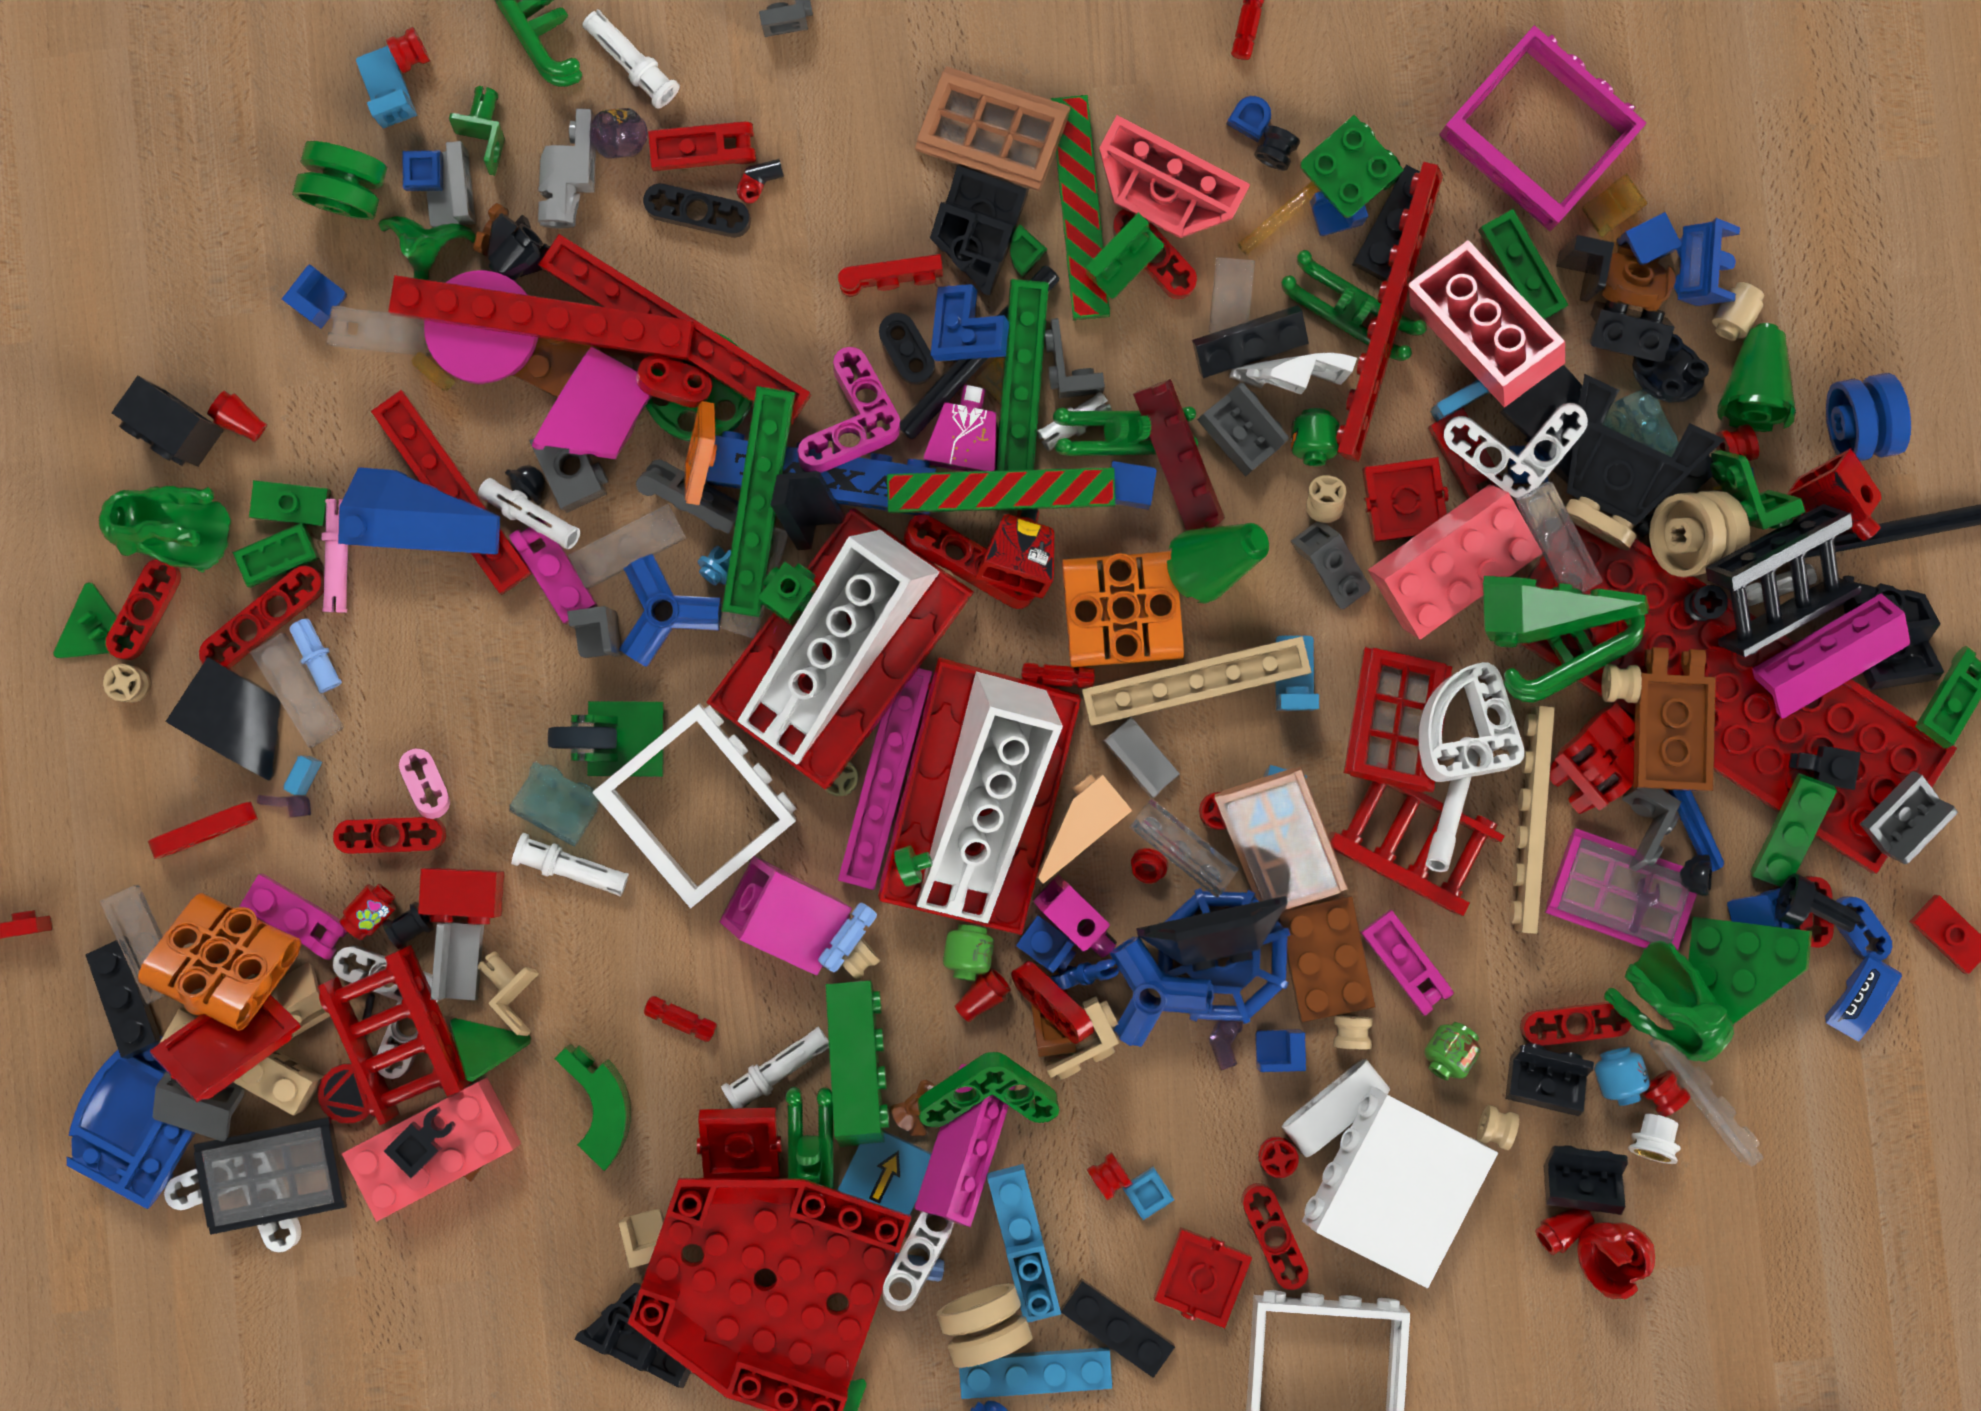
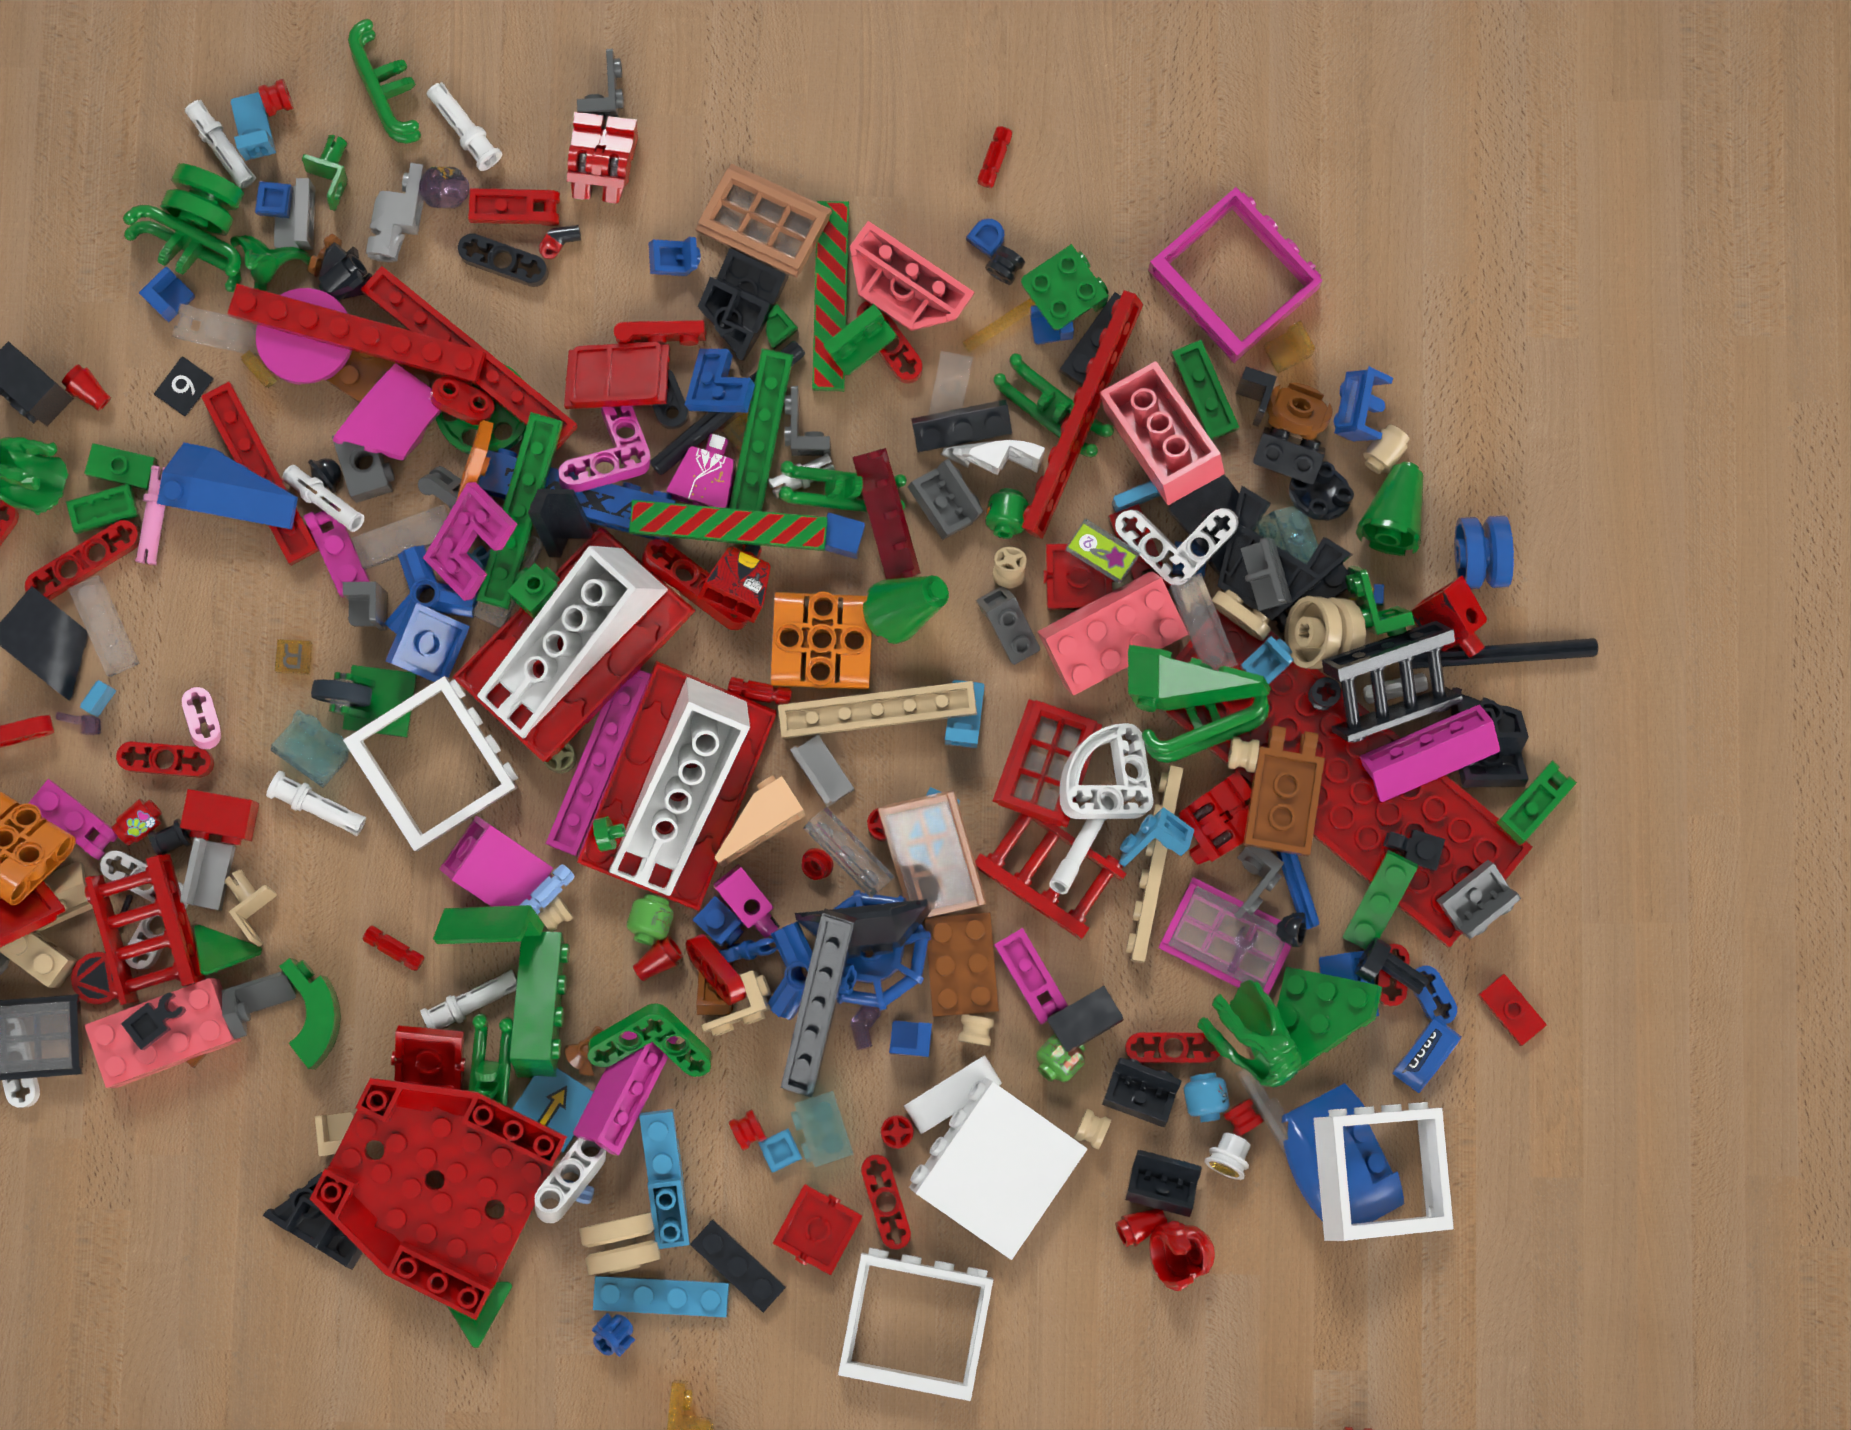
camera: 15 degrees right, 5 degrees down
(315, 655) = (123, 598): light blue axle -> none
(326, 228) = (184, 238): none -> green piece
(340, 100) = (212, 133): none -> white pin
(349, 401) = (183, 386): none -> black sticker
(519, 699) = (293, 656): none -> clear yellow tile
(526, 1094) = (254, 996): none -> dark grey bracket
(672, 667) = (427, 642): none -> plate
(705, 515) = (471, 516): none -> dark pink plate
(786, 985) = (487, 924): none -> green panel
(793, 73) = (601, 155): none -> hips
(848, 330) = (617, 375): none -> red piece
(894, 183) = (673, 257): none -> blue bracket
(1176, 1026) = (818, 1002): none -> tile
(1195, 1165) = (822, 1129): none -> clear light blue bracket
(1433, 468) = (1102, 551): none -> slope
(1478, 1007) = (1085, 1019): none -> black panel
(1539, 778) = (1164, 827): none -> dark azure bracket
(1626, 474) = (1266, 574): none -> dark grey panel
(1637, 571) = (1269, 659): none -> dark azure bracket
(1651, 239) = (1316, 379): blue panel -> none
(1740, 442) = (1373, 561): red wheel -> none
(1782, 1130) = (1371, 1183): none -> blue slope
(1788, 1154) = (1334, 1181): none -> white window

